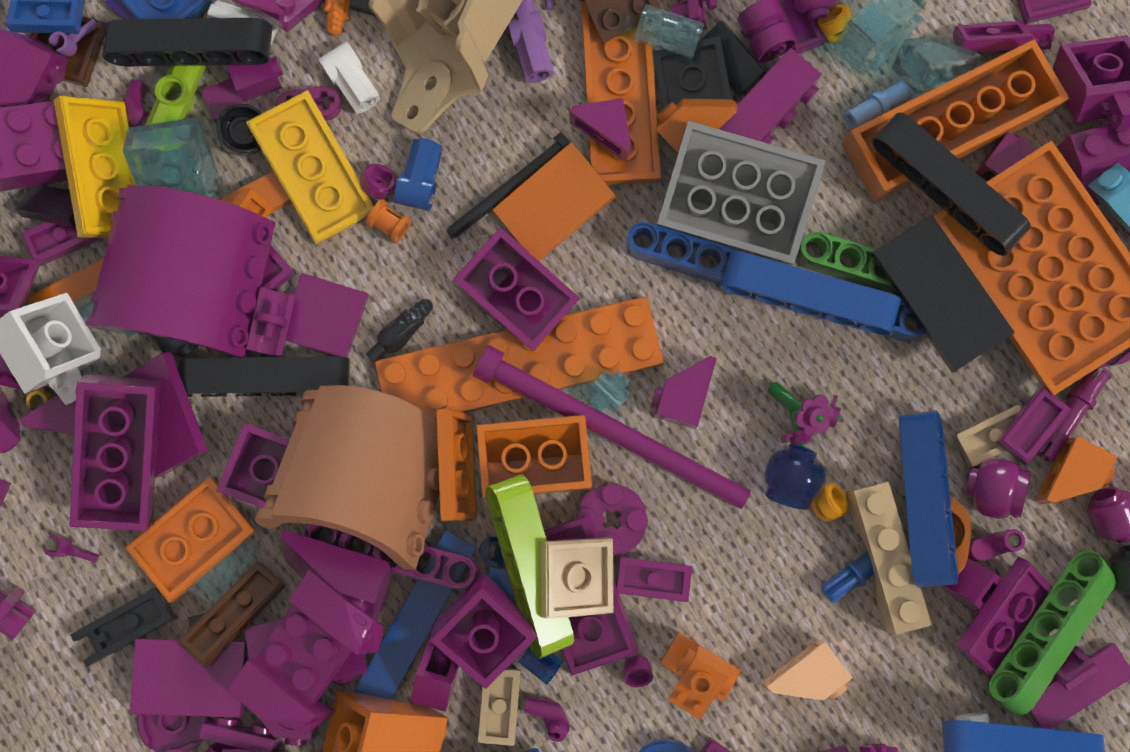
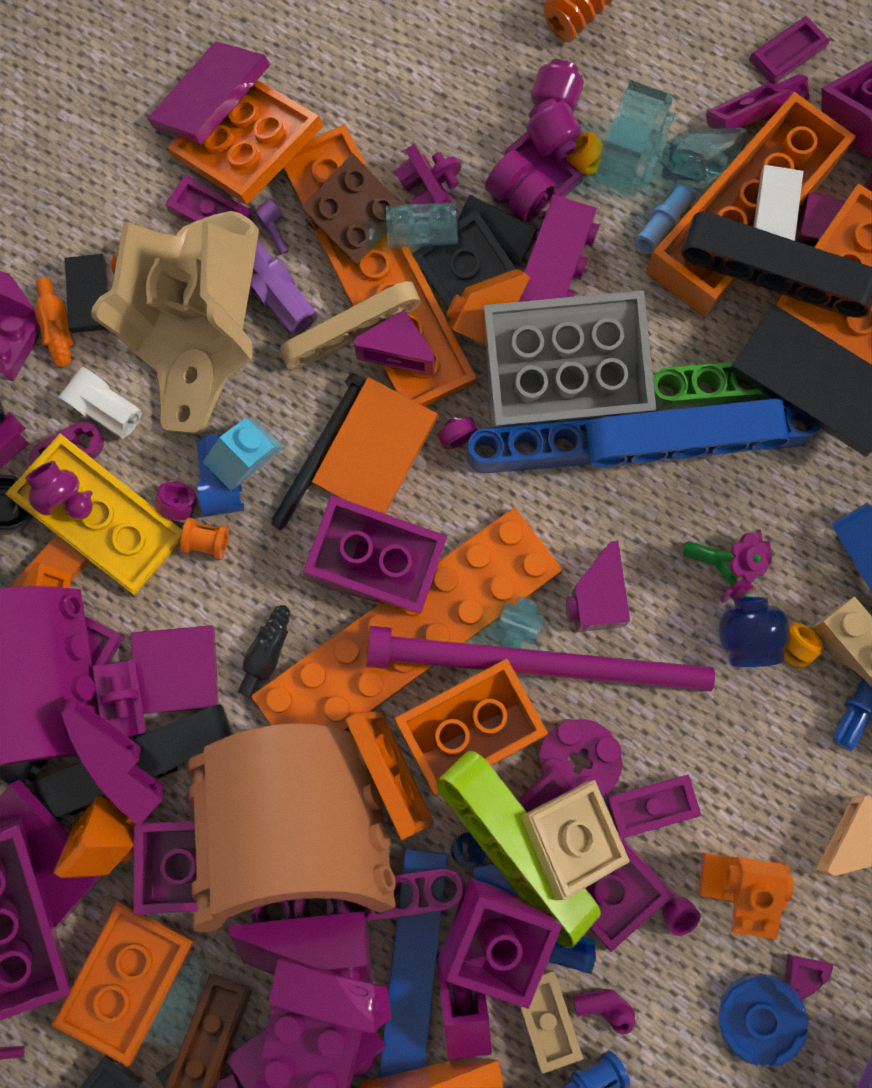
camera: 25 degrees left, 5 degrees down
(211, 424) = (97, 841): none -> orange slope
(244, 367) = (112, 761): none -> magenta slope
(286, 132) = (55, 486): none -> magenta animal
(445, 163) = (241, 452): none -> medium azure slope
(574, 92) = (349, 324): none -> tan beam
(625, 216) = (457, 432): none -> magenta tile
(975, 130) = (778, 201): none -> white tile

